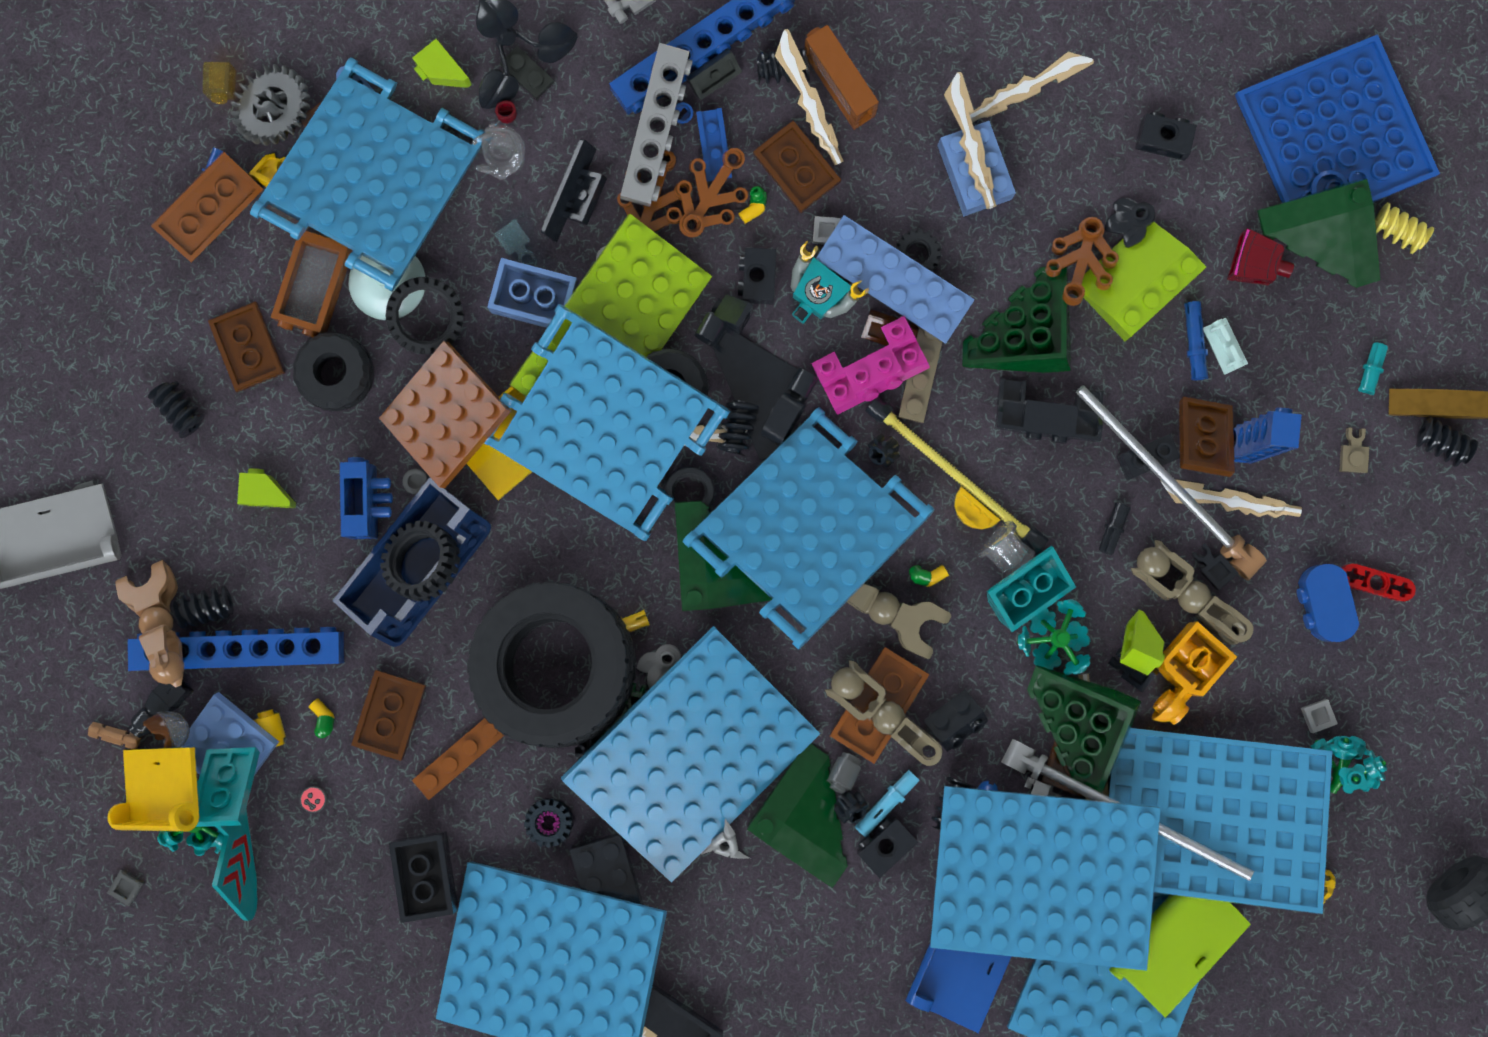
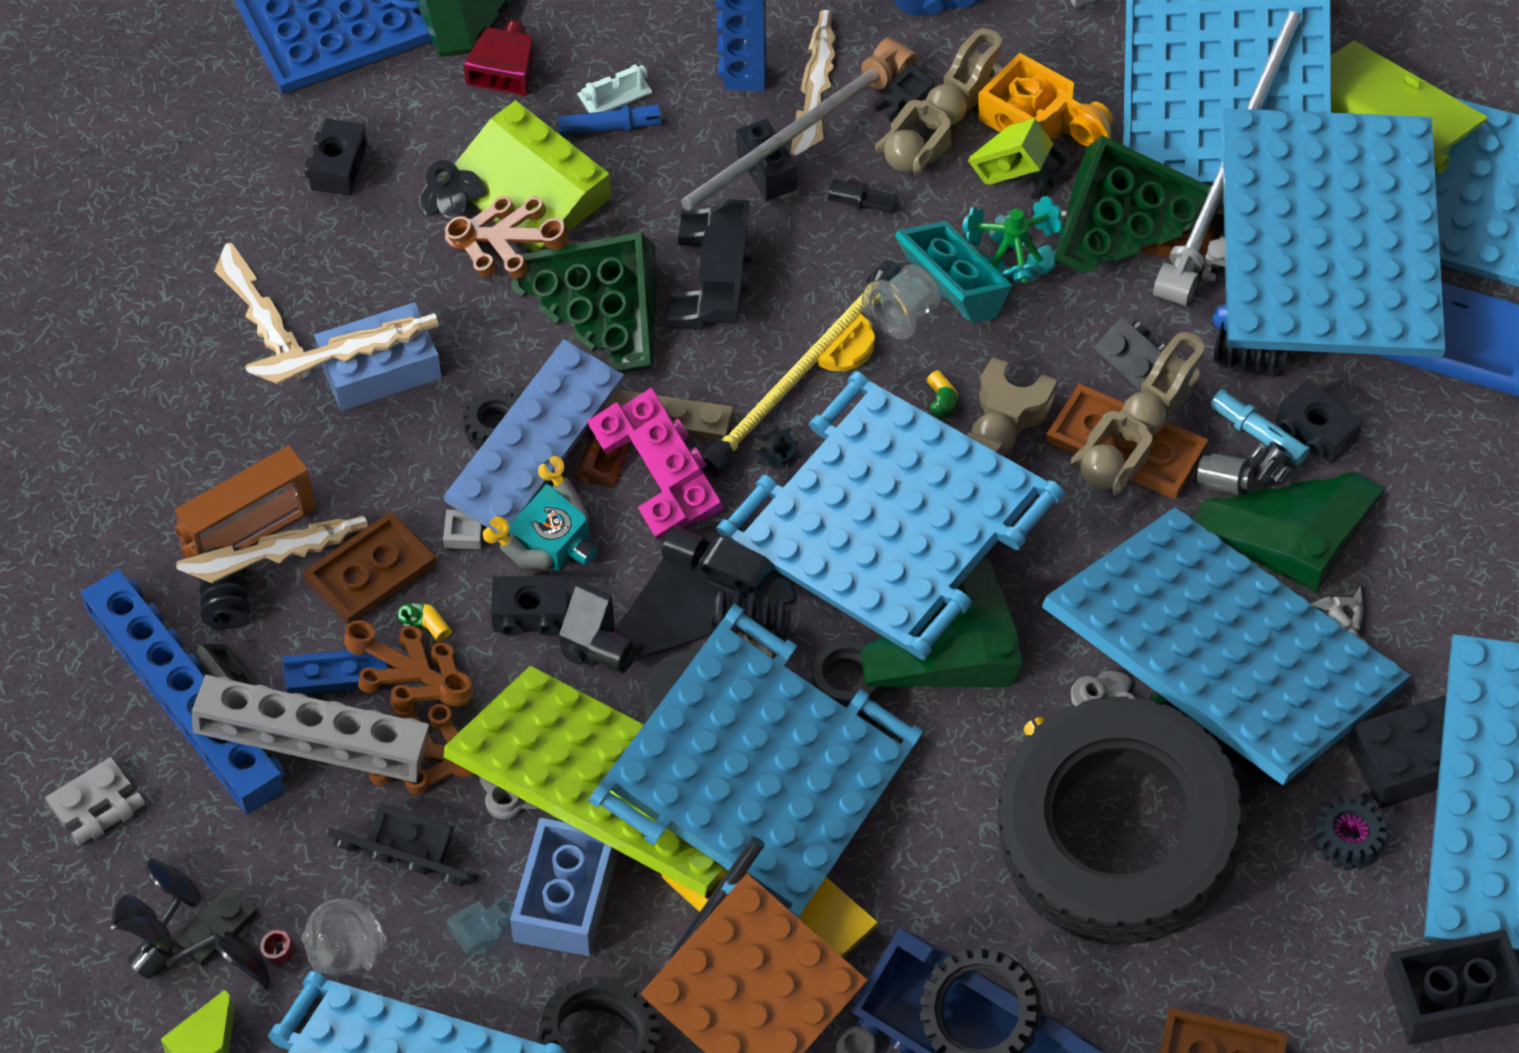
camera: 90 degrees left, 30 degrees down
(457, 758) = (1269, 960): dark orange plate -> none
(500, 388) = (732, 877): none -> black bar
(1206, 436) = (737, 97): reddish brown plate -> none

